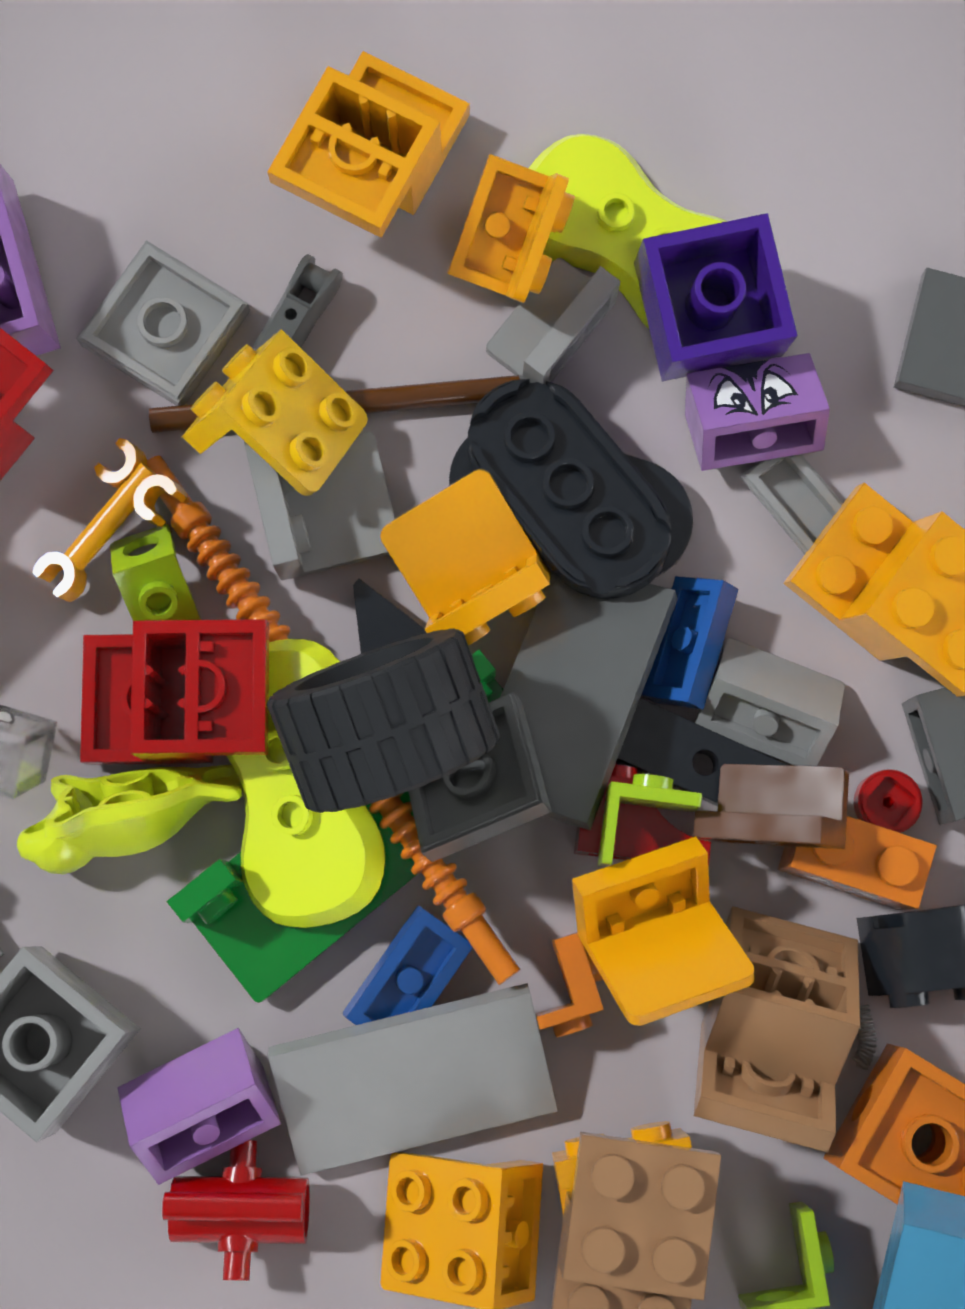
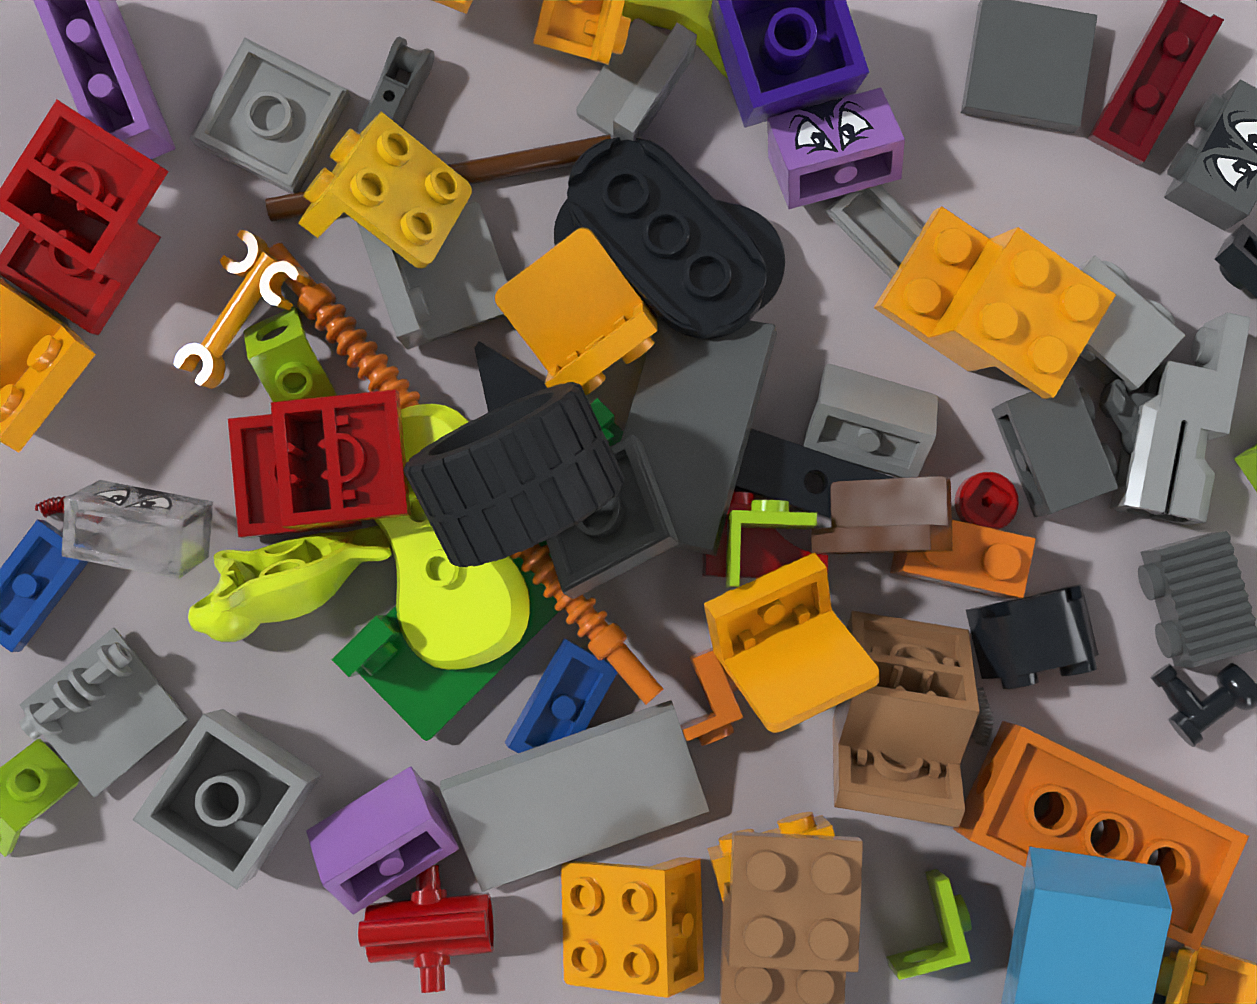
camera: 10 degrees left, 5 degrees up
(691, 642) = (793, 371): blue plate -> none

